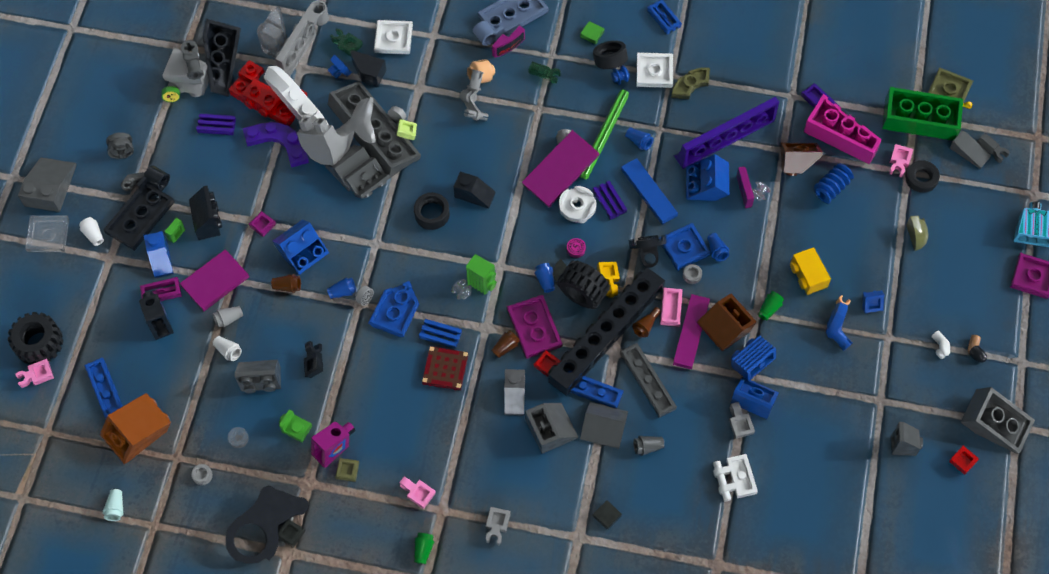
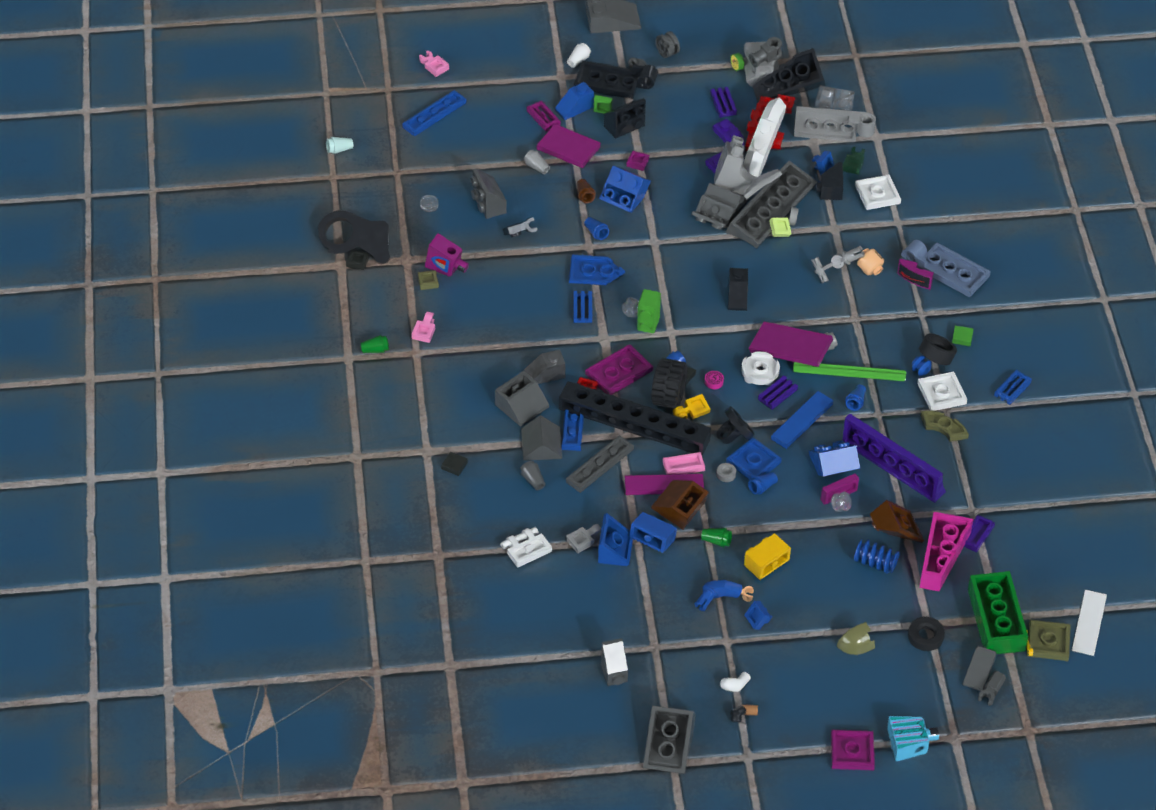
camera: 70 degrees right, 15 degrees down
(26, 328) = (463, 51): black tyre -> none
(47, 233) = (565, 31): clear tile -> none
(134, 427) = (410, 133): dark orange slope -> none
(152, 310) = (515, 114): black torso -> none
(201, 474) = (387, 190): light grey tile -> none
(227, 348) = (506, 171): white cone -> none
(294, 426) = (454, 231): bright green bracket -> none
(364, 295) = (596, 244): light grey tile -> none
(429, 198) = (703, 256): black tyre -> none
(445, 368) = (550, 318): tile -> none
(497, 522) = (417, 388): light grey plate -> none
(505, 344) = (591, 352): reddish brown cone -> none
(544, 71) = (897, 309): clear green bar -> none
(643, 326) = (654, 446): reddish brown cone -> none
(900, 159) = (936, 609): bright pink plate -> none
(935, 54) = (1089, 622): none -> white sticker
(964, 460) = (615, 719): red plate -> none

